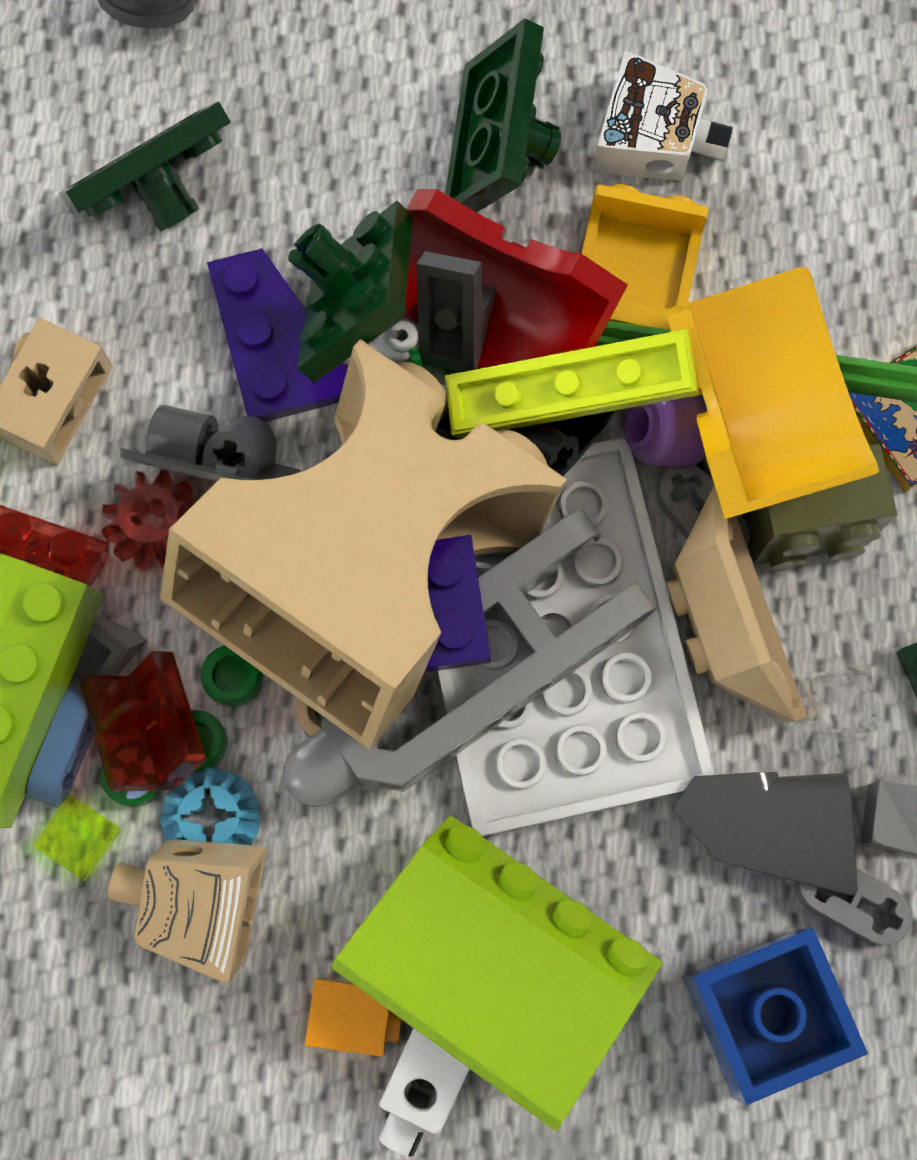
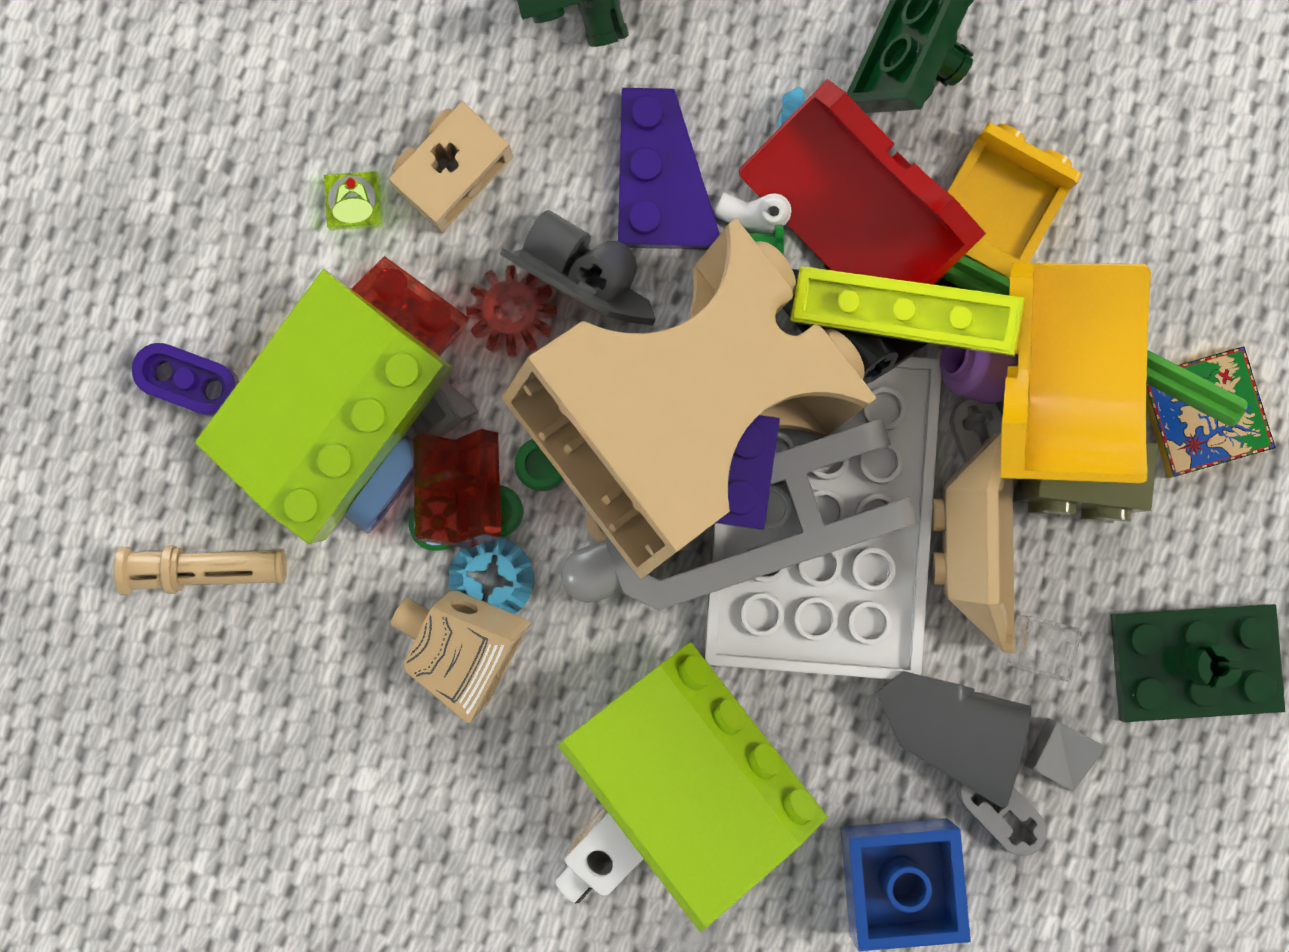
camera: 15 degrees right, 10 degrees up
(77, 837) = (377, 562): clear neon green tile -> none
(349, 1020) = (556, 783): light orange brick -> none
(353, 288) = (744, 161): dark green plate -> none
(452, 311) = (824, 204): dark grey slope -> none
(656, 123) = (1062, 75): torso -> none

